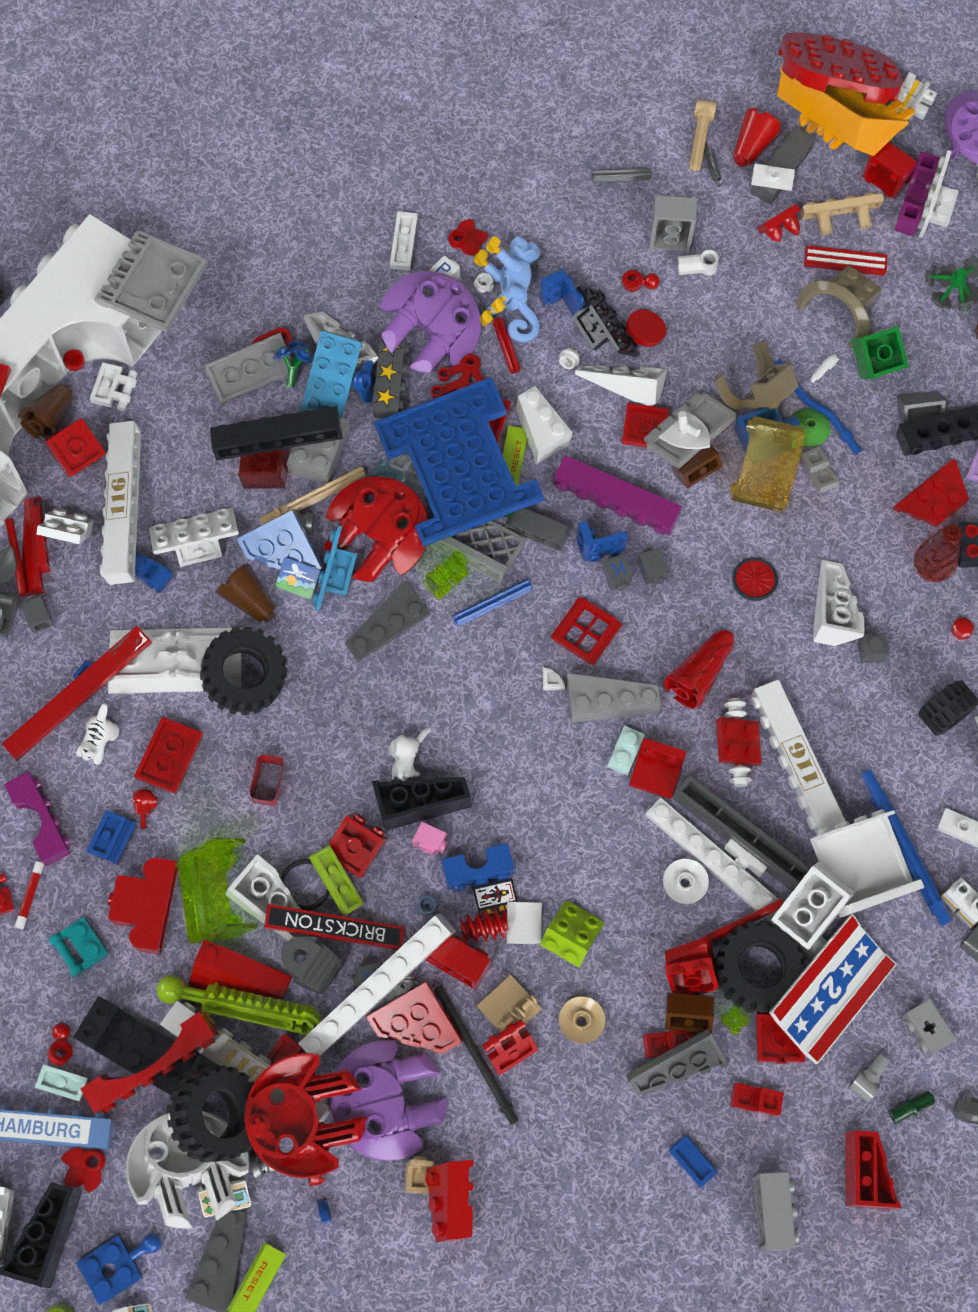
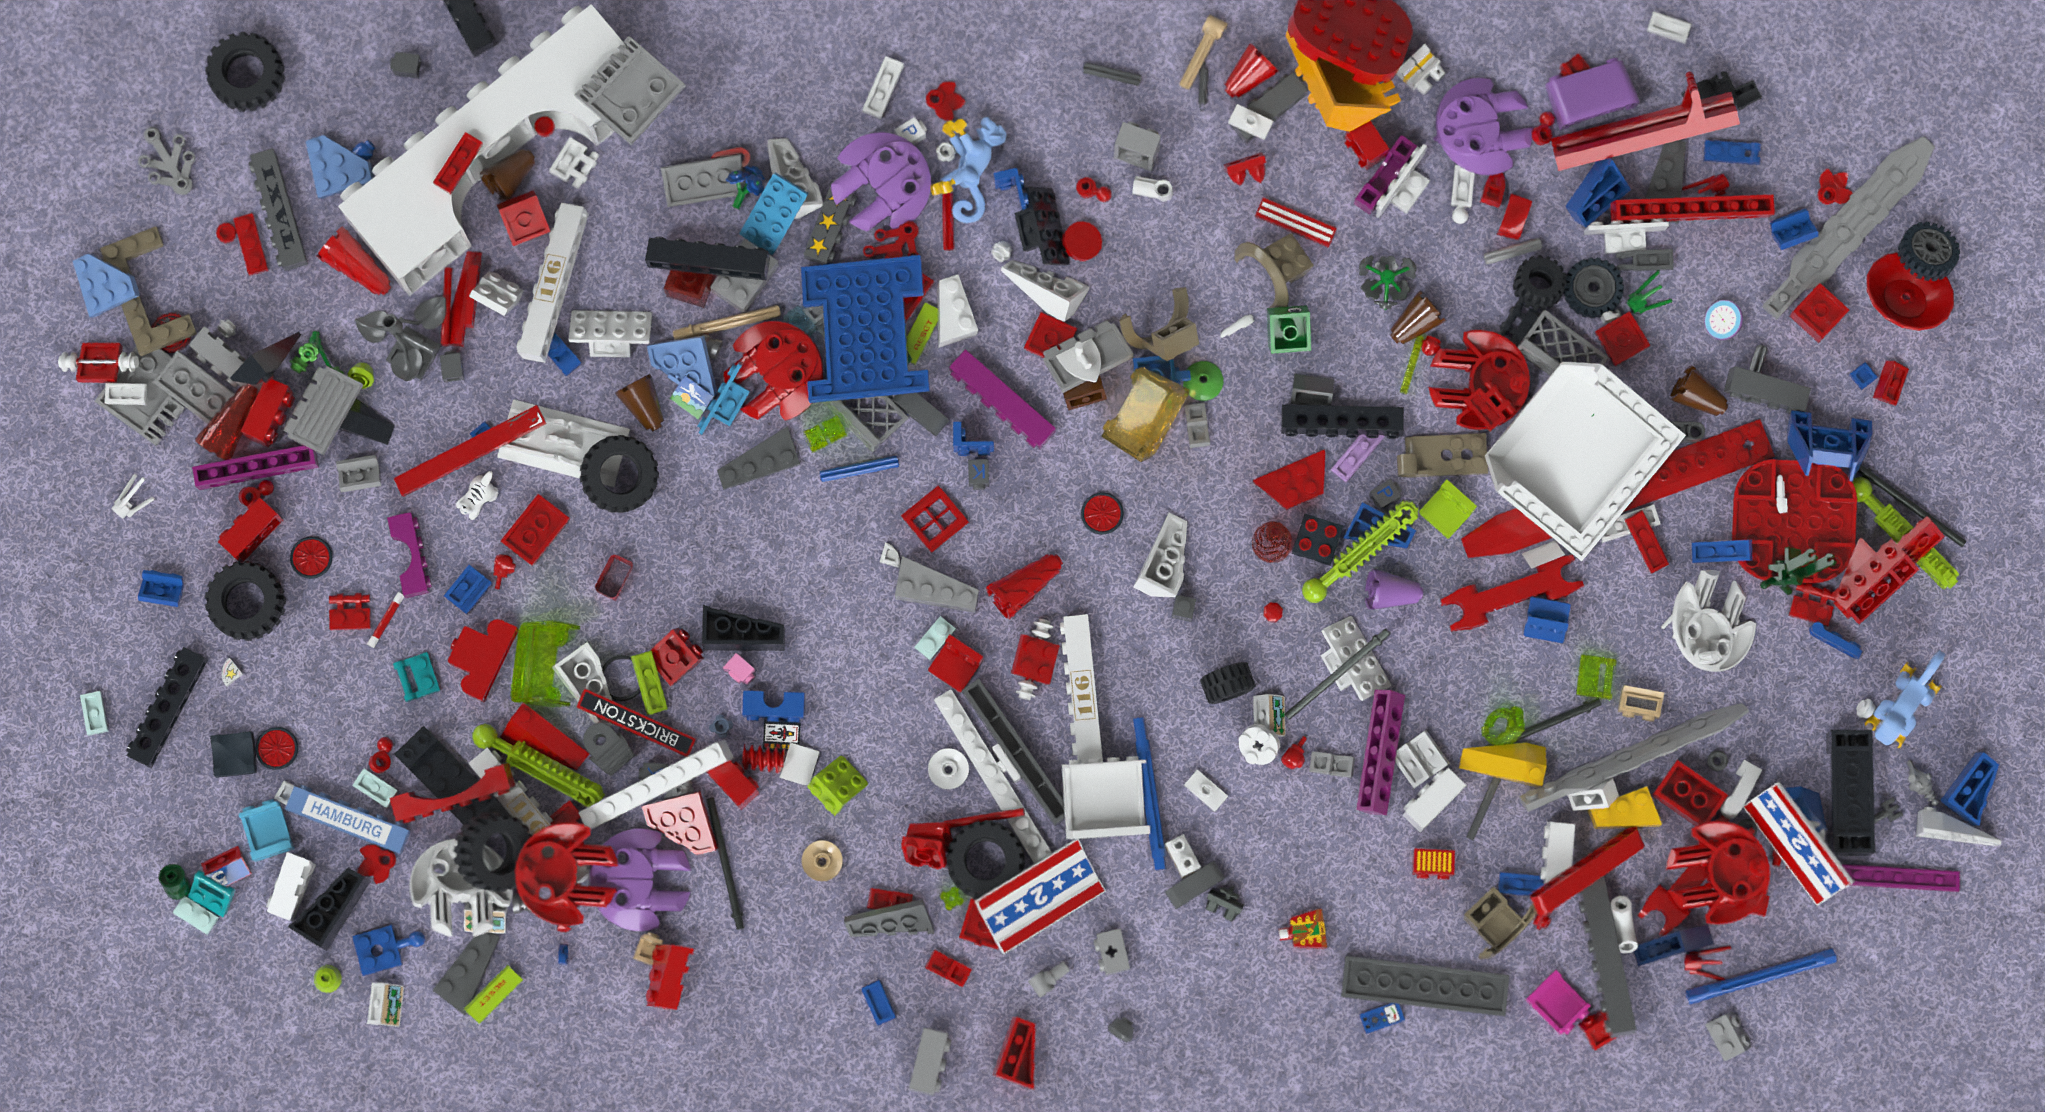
camera: 20 degrees right, 10 degrees up
(364, 380) = (803, 223): blue plate -> none
(404, 751) = (740, 585): white animal -> none
(508, 1004) = (764, 832): tan hinge -> none
(512, 1052) = (754, 871): red plate -> none
(652, 566) = (1012, 477): dark grey brick -> none
(693, 1012) = (913, 881): reddish brown brick -> none
(813, 905) = (1043, 822): white brick -> none
(833, 207) = (1319, 166): tan plate -> none
(845, 434) = (1232, 399): blue bar -> none
(911, 1107) = (1075, 1012): dark green axle -> none

